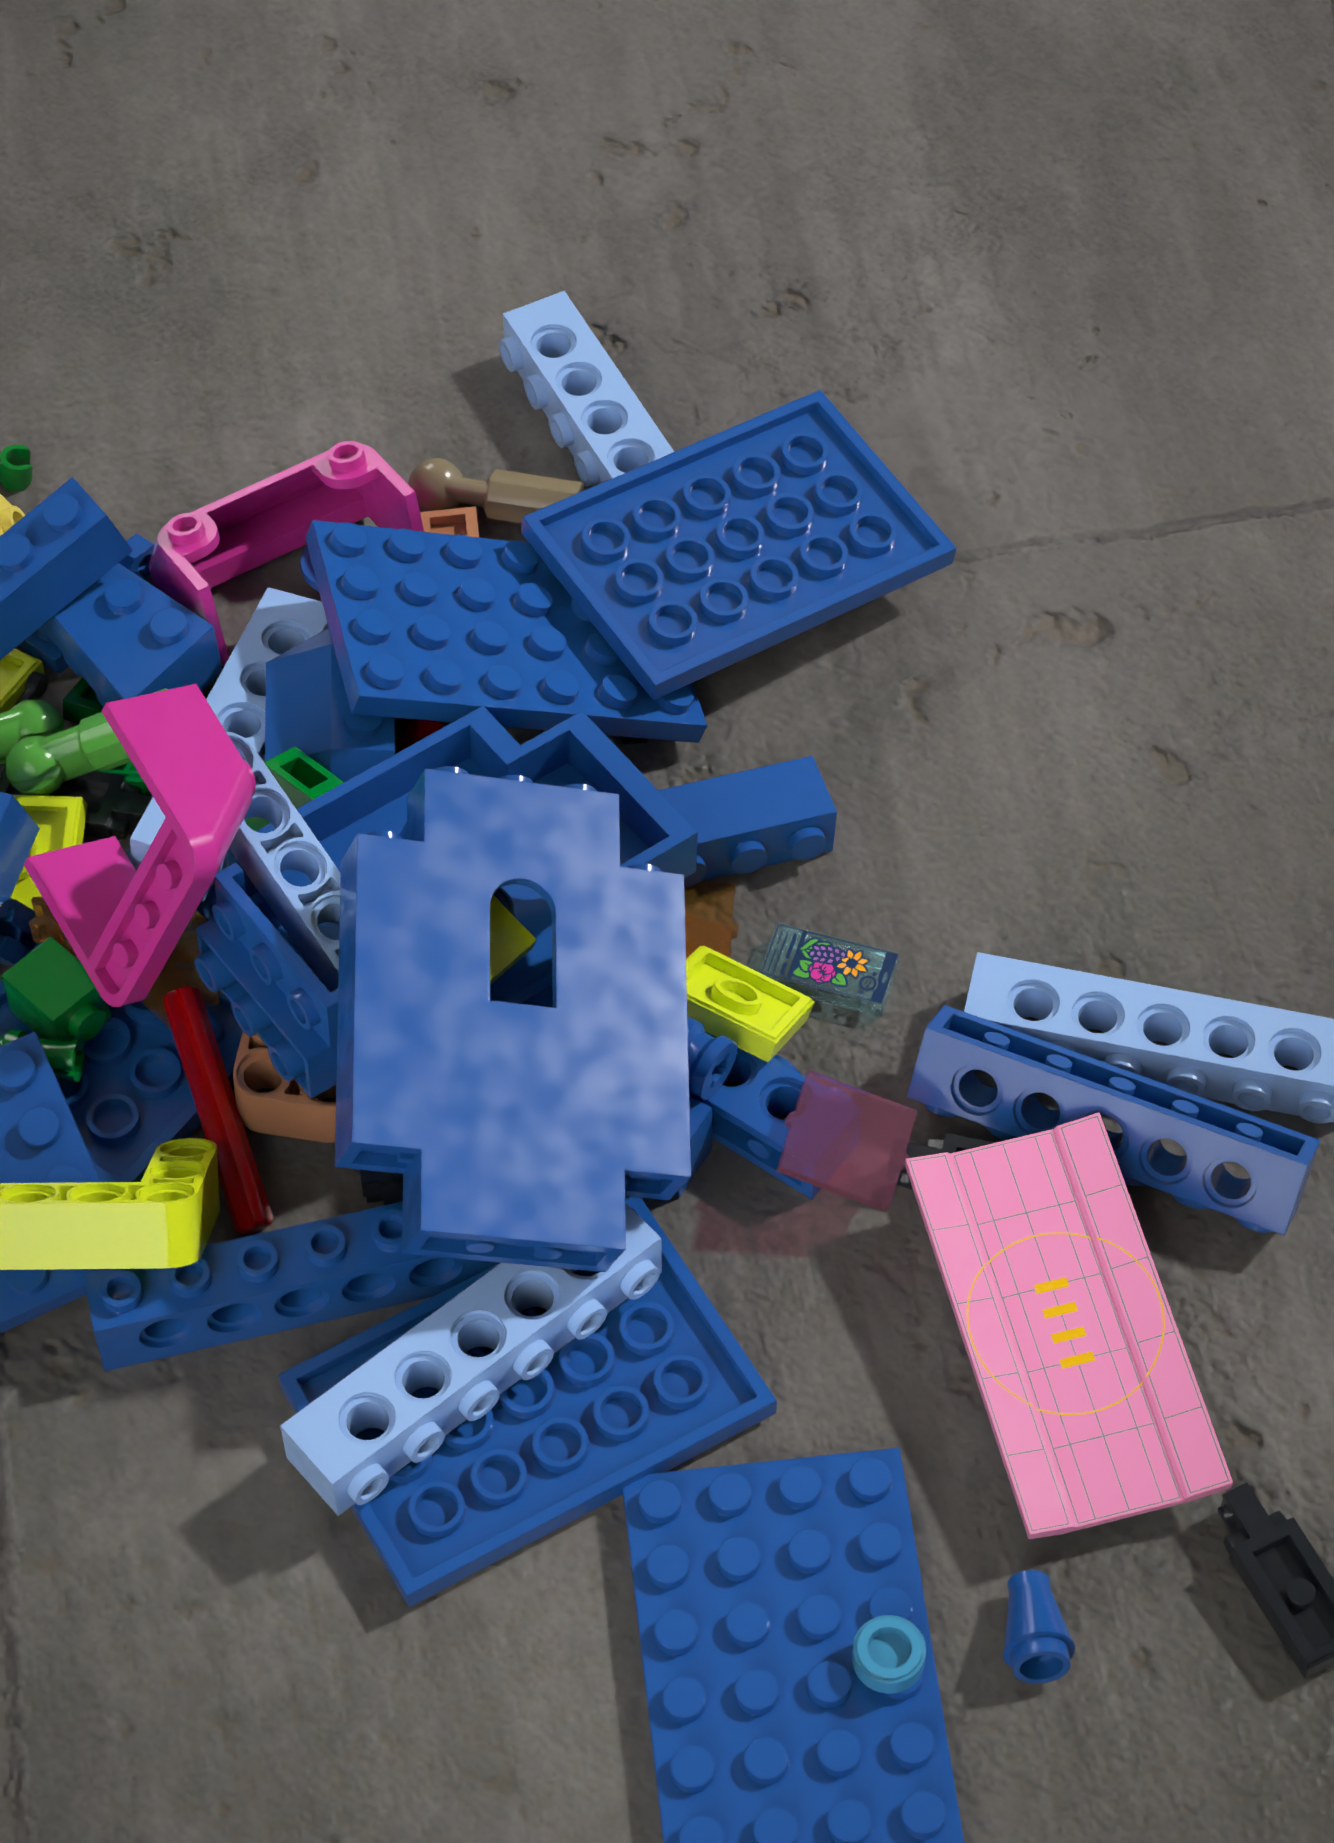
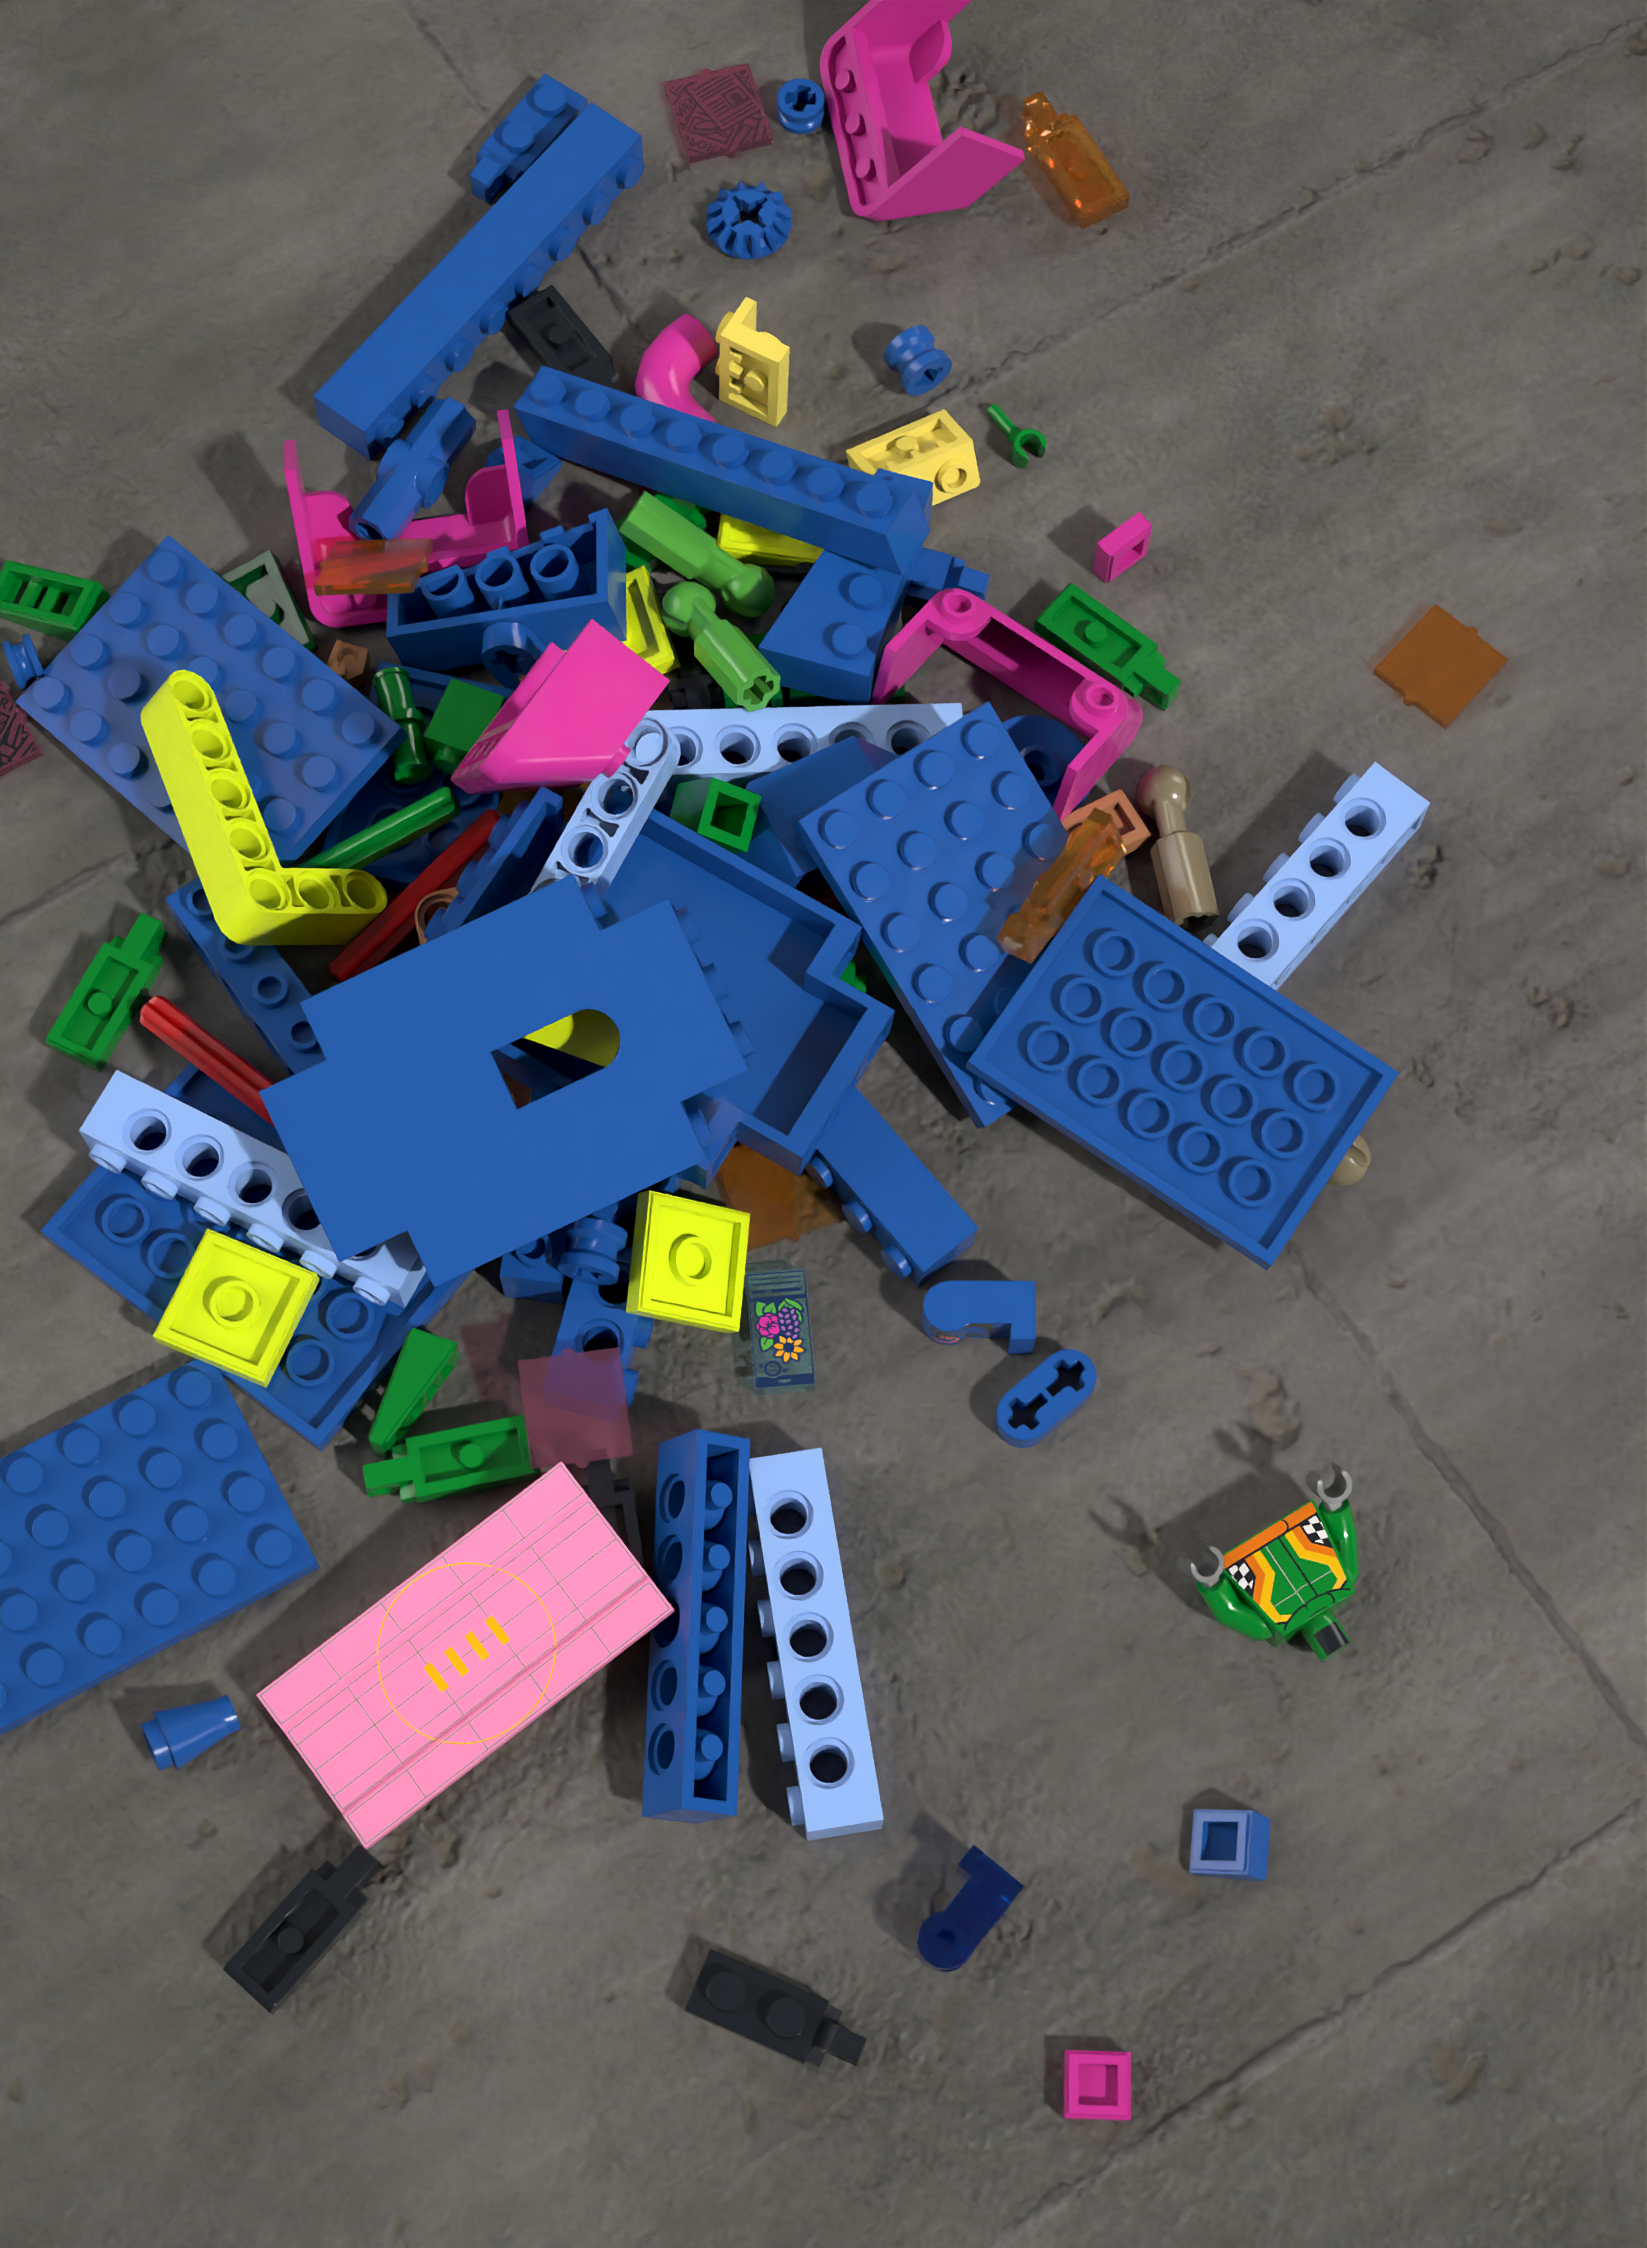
camera: 65 degrees right, 15 degrees up
(139, 1093) = (389, 833): none -> green axle
(161, 1449) = (109, 995): none -> green hinge
(170, 428) = (1122, 548): none -> dark pink tile
(253, 465) = (1107, 646): none -> green hinge
(325, 1340) = (206, 1053): none -> red axle
(419, 259) = (1440, 666): none -> clear orange piece
(549, 585) = (1088, 852): none -> clear orange hinge
(592, 1423) = (236, 1308): none -> neon yellow tile
(751, 1299) = (416, 1378): none -> green slope
(845, 1286) = (454, 1462): none -> green hinge
(886, 793) = (981, 1311): none -> blue leg
(889, 1654) = (109, 1619): dark azure tile -> none
(1003, 779) = (1054, 1409): none -> blue beam
(1240, 648) = (1288, 1573): none -> torso

